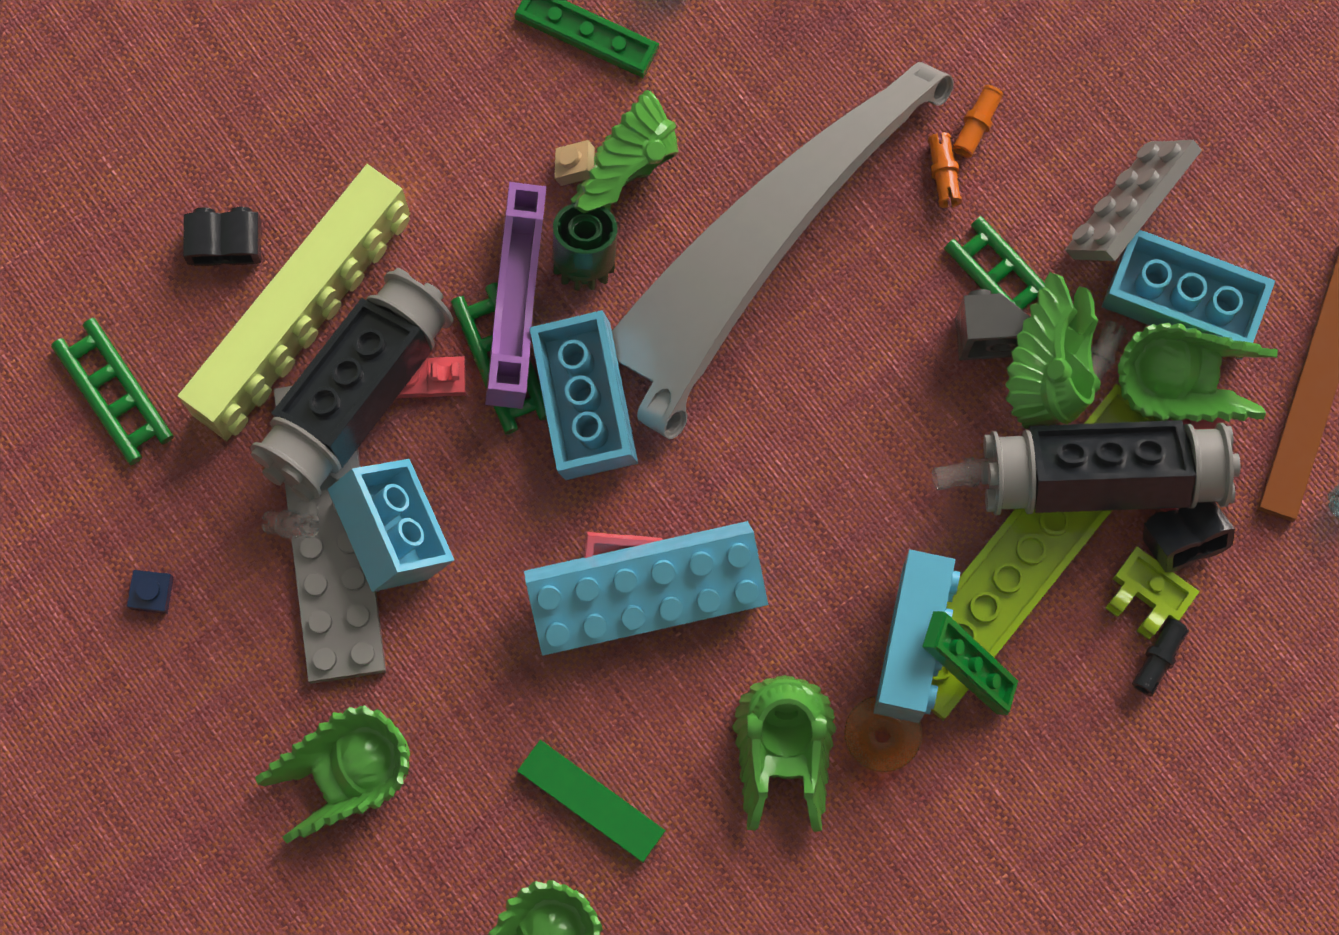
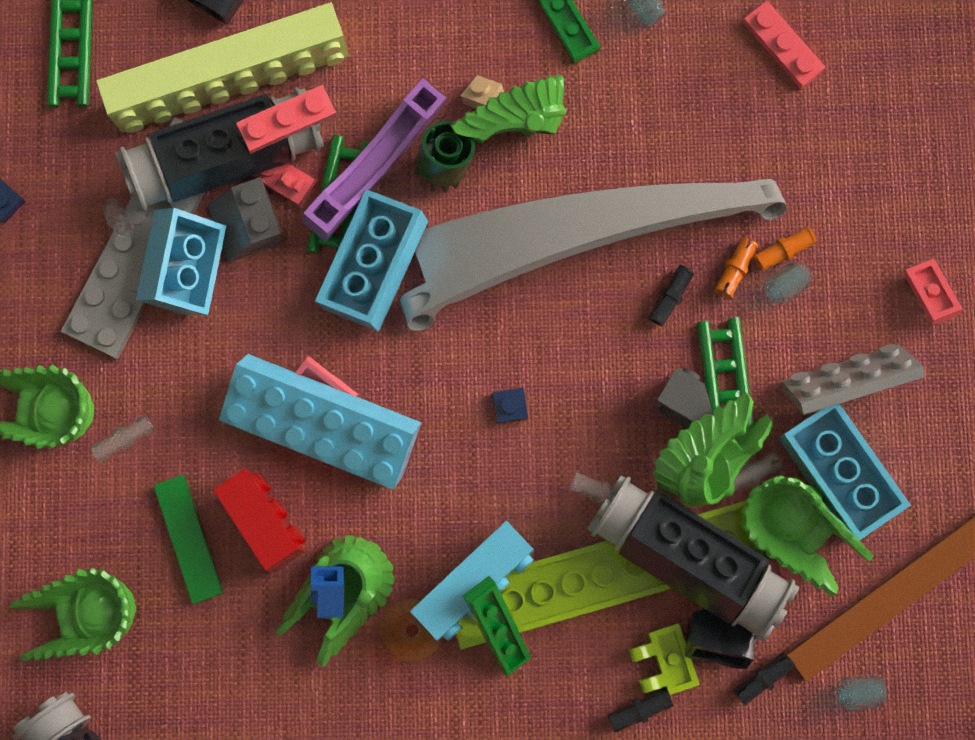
camera: 40 degrees right, 5 degrees up
(406, 306) = (286, 119): none -> coral plate
(426, 436) = (248, 220): none -> dark grey slope
(451, 745) = (122, 438): none -> clear pin
(656, 724) = (261, 519): none -> red brick
(779, 744) = (328, 590): none -> blue brick
(820, 449) = (510, 405): none -> dark blue plate
(900, 238) = (670, 295): none -> black pin
(1004, 151) = (788, 282): none -> clear light blue brick
(1147, 69) = (933, 291): none -> coral plate
(1254, 544) = (764, 678): none -> black pin

